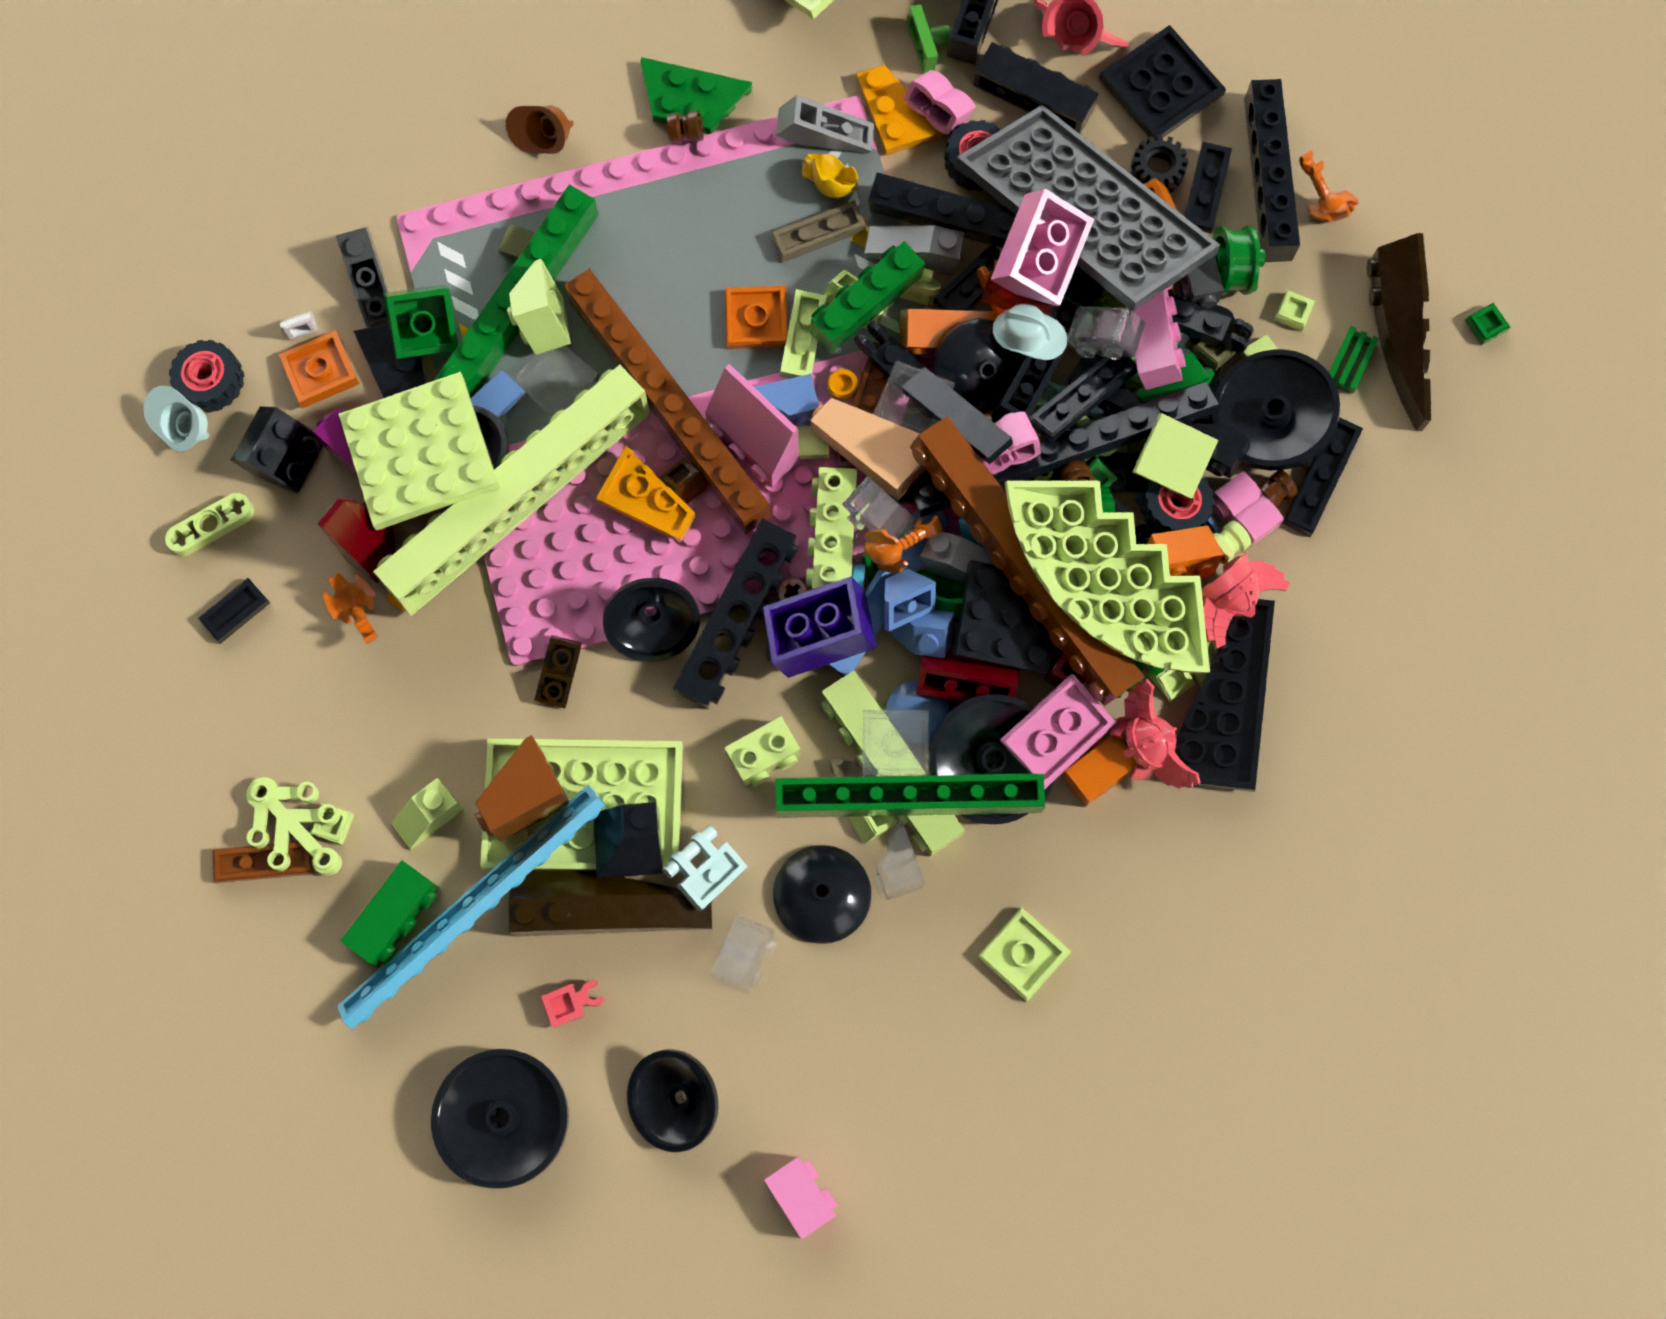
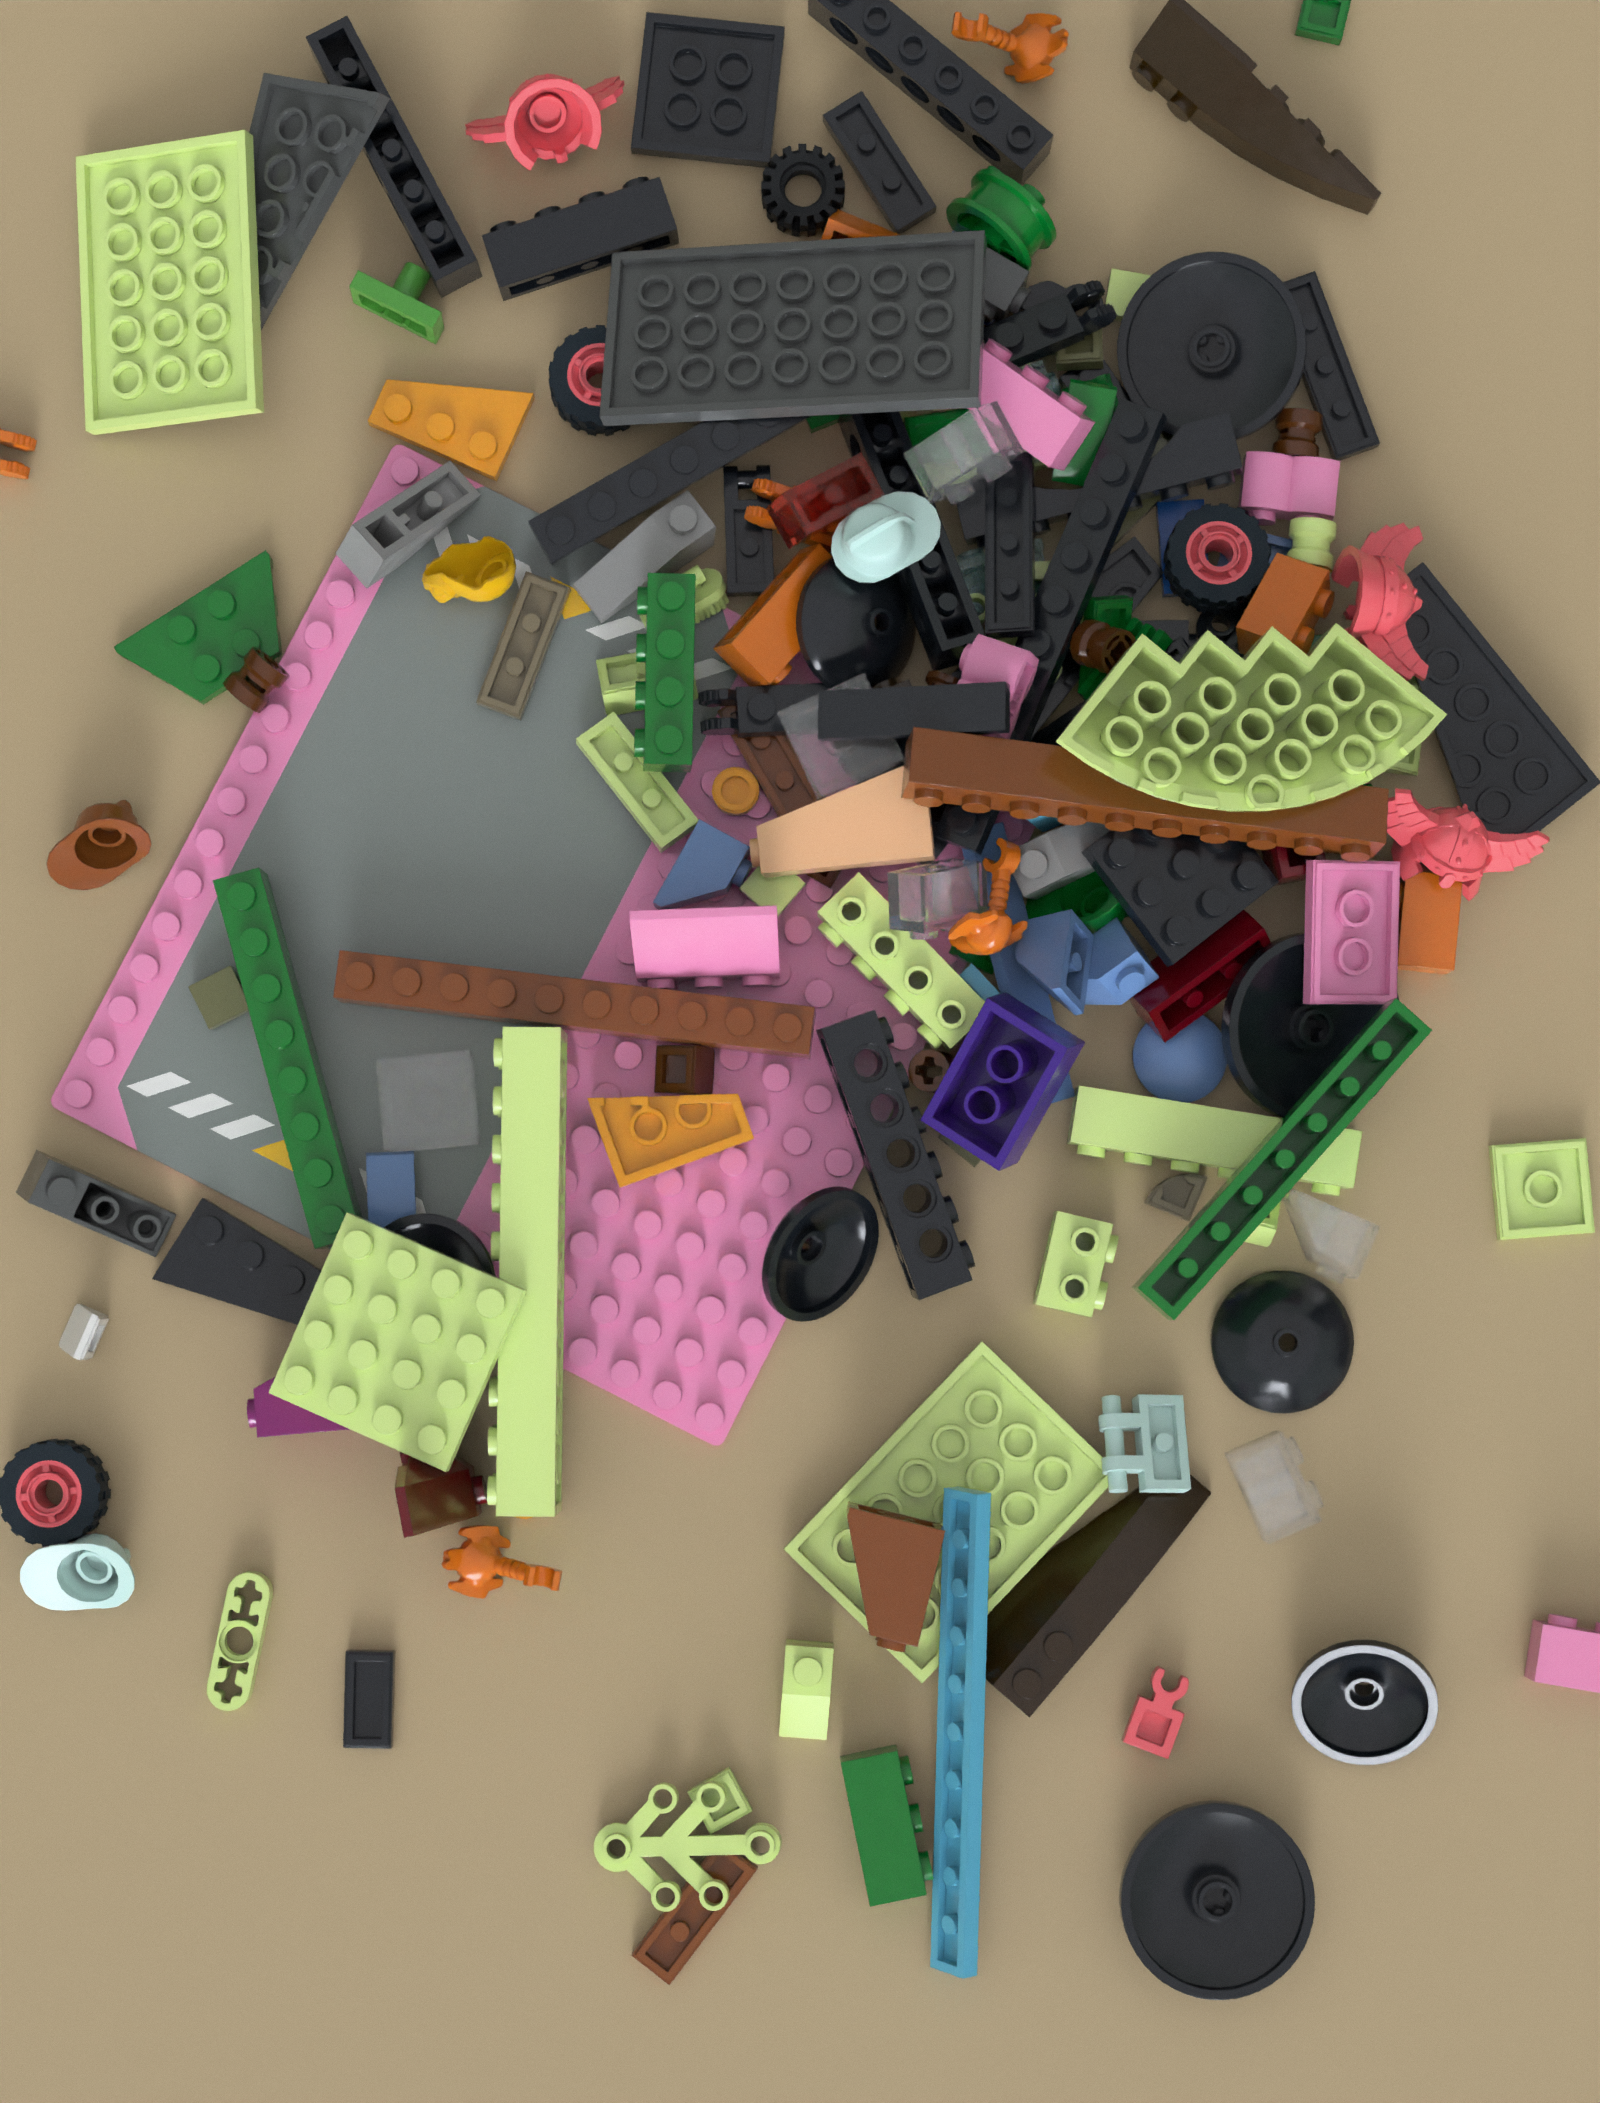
camera: 45 degrees left, 10 degrees up
(278, 449) = (221, 1488): black slope -> none
(319, 369) = (163, 1357): orange plate -> none
(421, 321) = (219, 1194): green slope -> none
(539, 310) = (339, 1052): yellowish green slope -> none
(558, 671) = (775, 1404): dark brown slope -> none
(628, 841) = (1044, 1501): black slope -> none
(756, 317) = (561, 811): orange tile -> none
(895, 743) = (1204, 1118): clear tile -> none
(939, 101) = (496, 363): bright pink brick -> none
(1042, 248) = (814, 435): bright pink slope -> none
(1175, 456) = (1175, 516): yellowish green tile -> none
(1294, 310) = (1110, 209): yellowish green tile -> none
(1361, 338) = (1211, 167): green tile -> none

